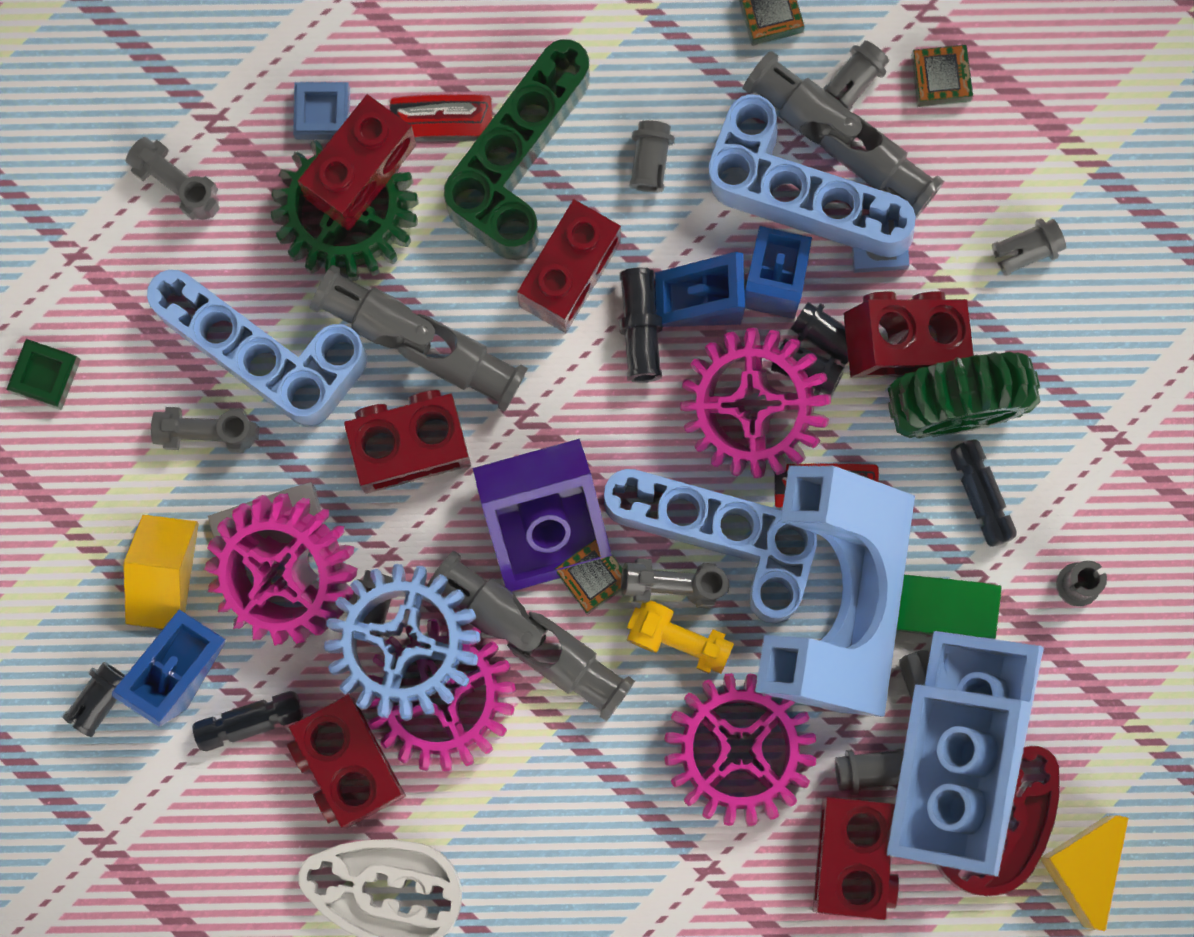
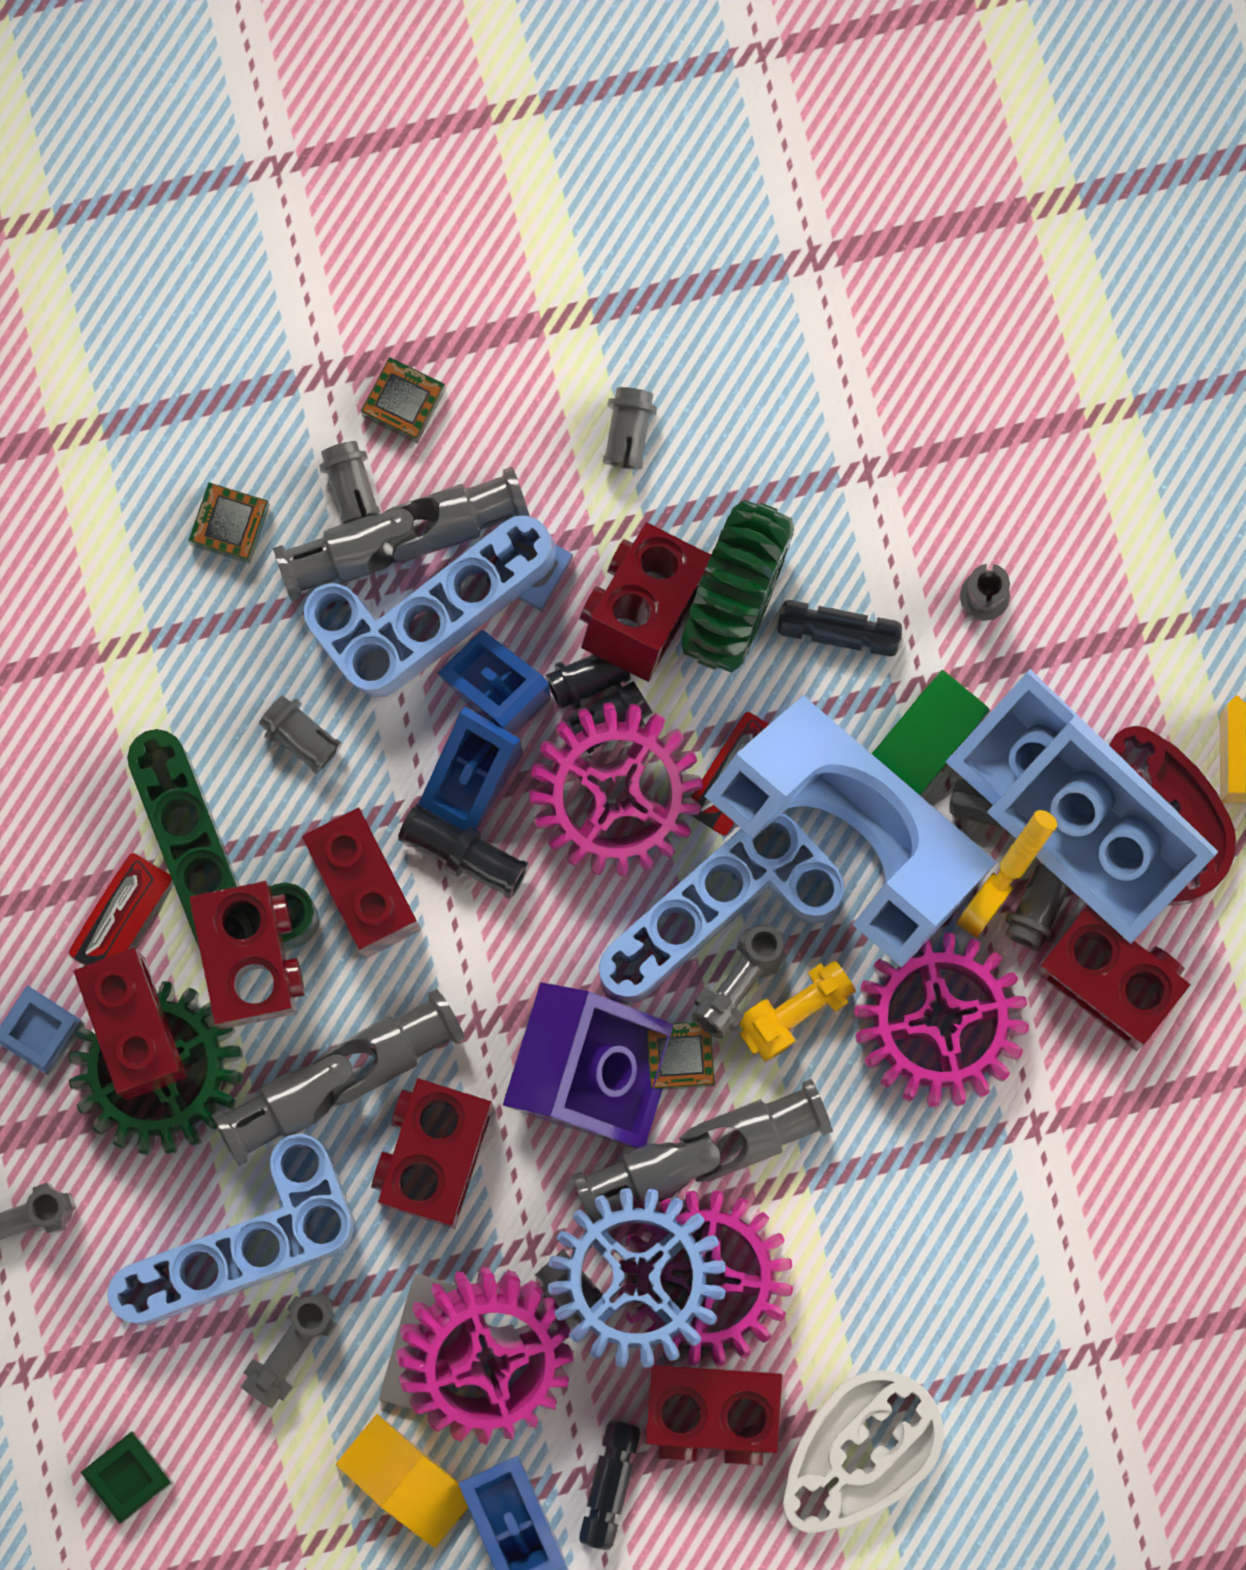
camera: 55 degrees left, 0 degrees up
(447, 202) = (229, 959): none -> dark red brick
(887, 729) = (1012, 867): none -> yellow piece

